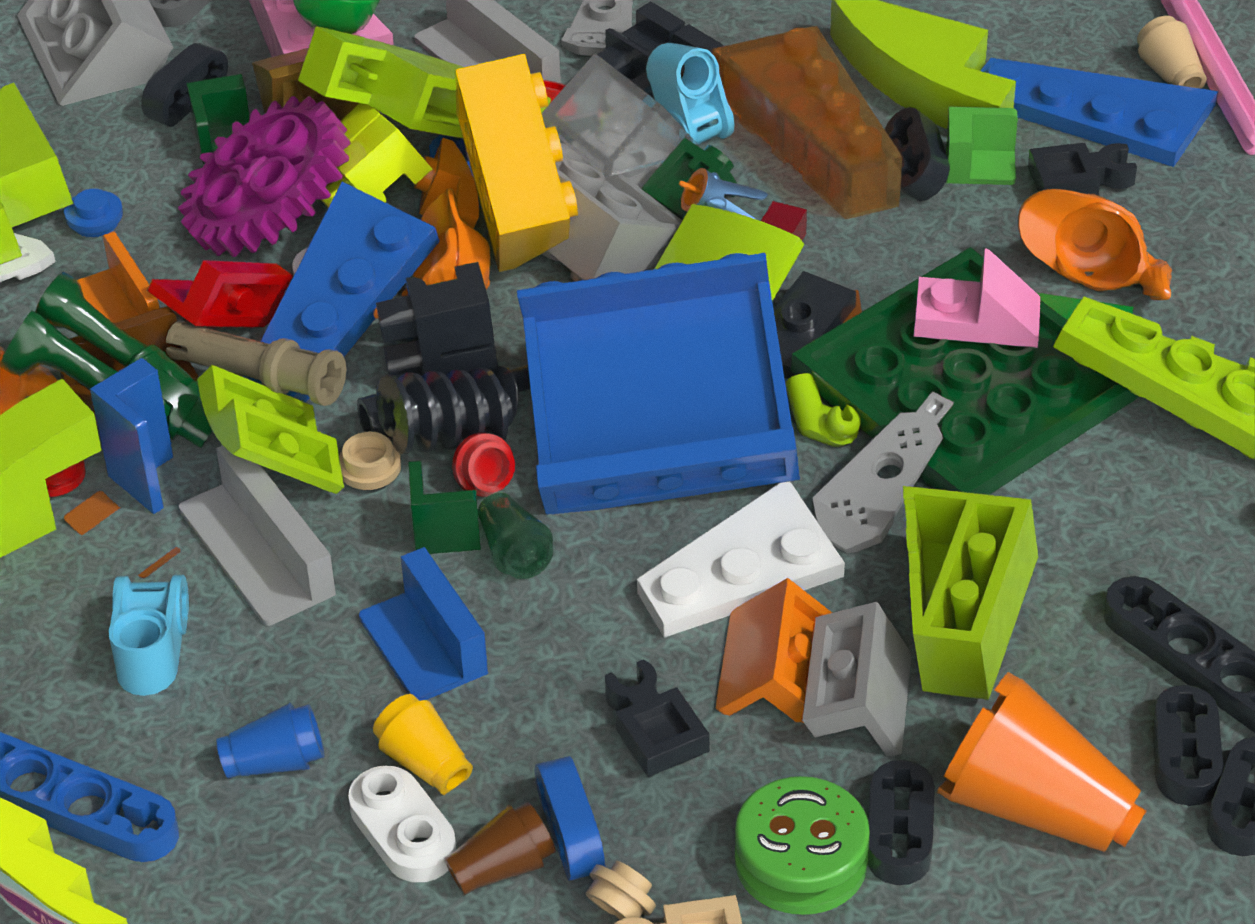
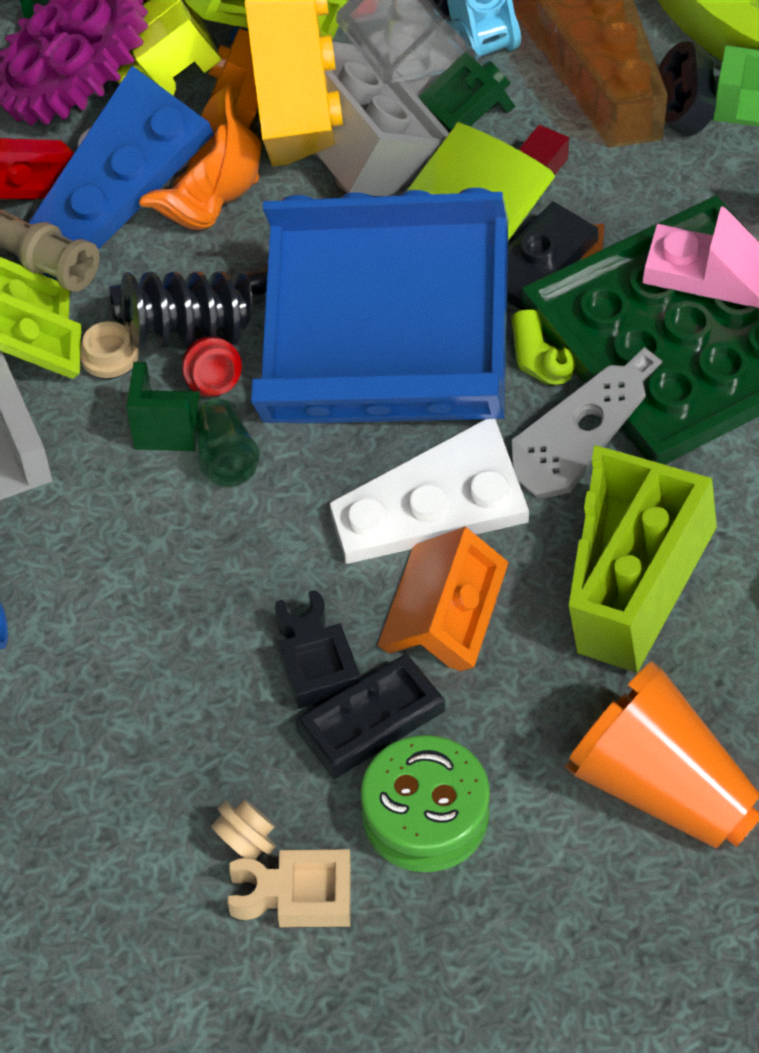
camera: 10 degrees right, 10 degrees up
(398, 818) = (61, 721): white plate -> none
(420, 742) = (94, 647): yellow cone -> none
(427, 631) = (122, 534): blue panel -> none
(448, 324) = (201, 224): black hips -> none
(501, 849) = (143, 768): reddish brown cone -> none
(569, 817) = (213, 745): blue beam -> none
(709, 190) = (475, 111): flat silver piece -> none
(724, 772) = (370, 715): none -> black plate
(858, 676) = (515, 636): light grey panel -> none
(915, 822) = (541, 792): black beam -> none

